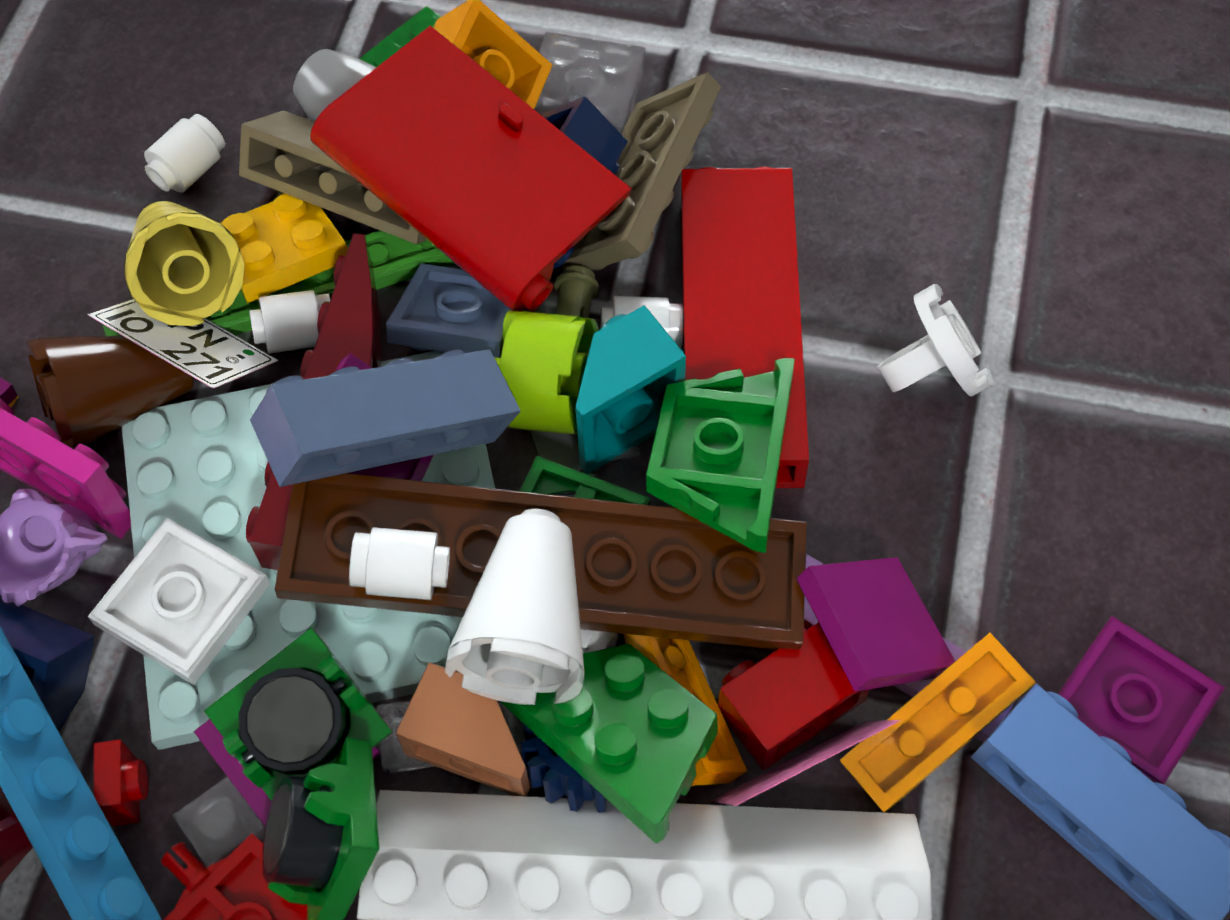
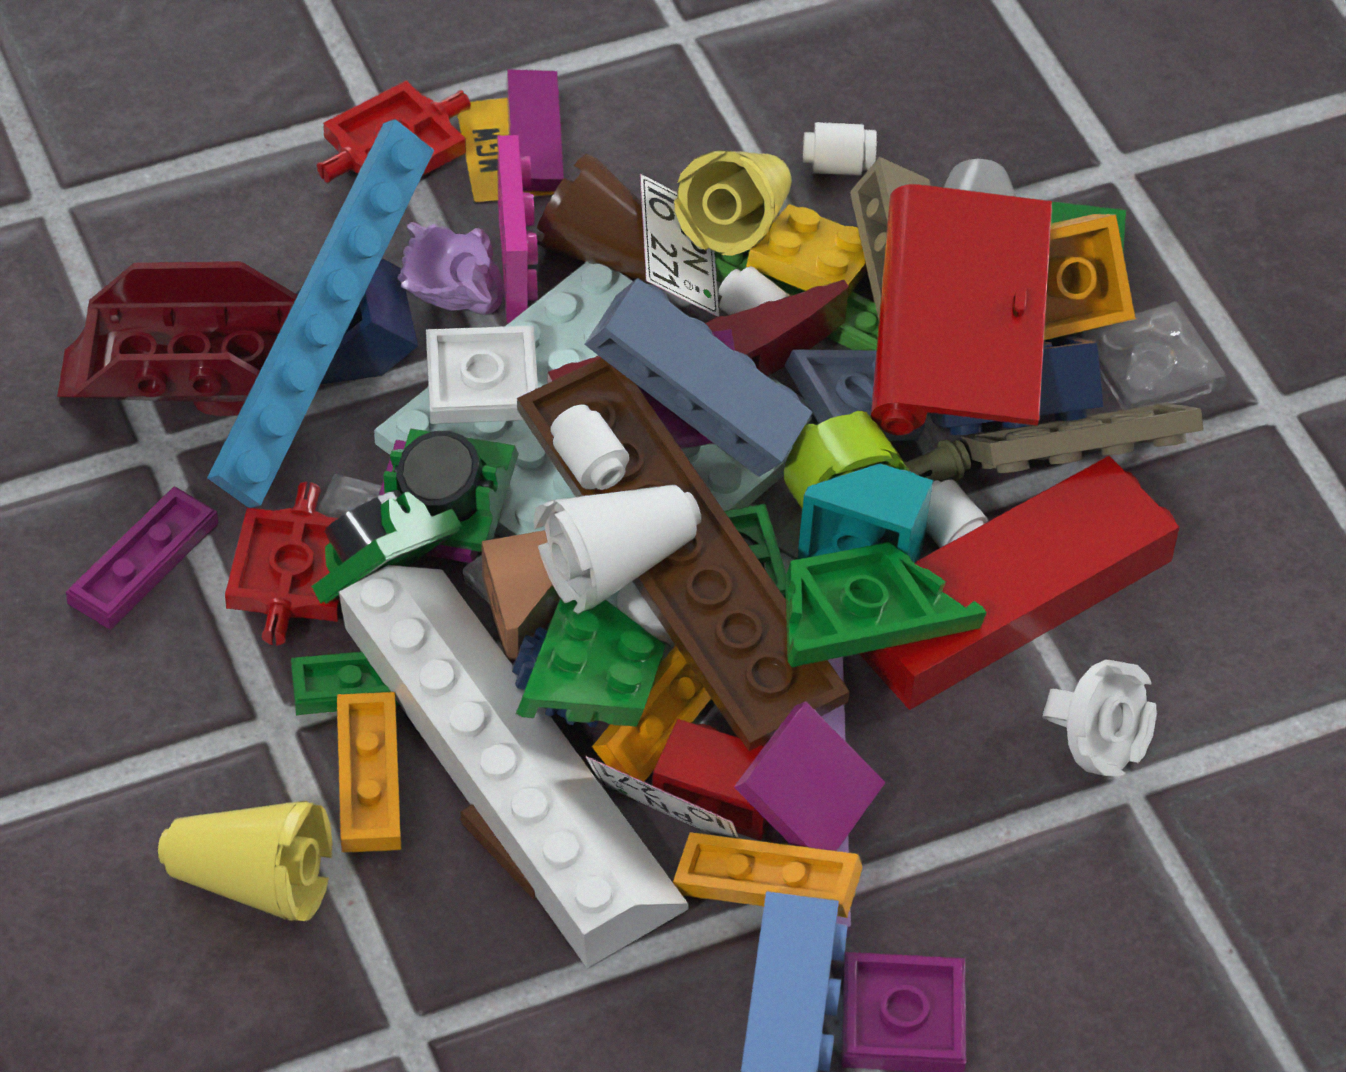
camera: 50 degrees right, 10 degrees down
(119, 782) = (330, 428): red plate -> none

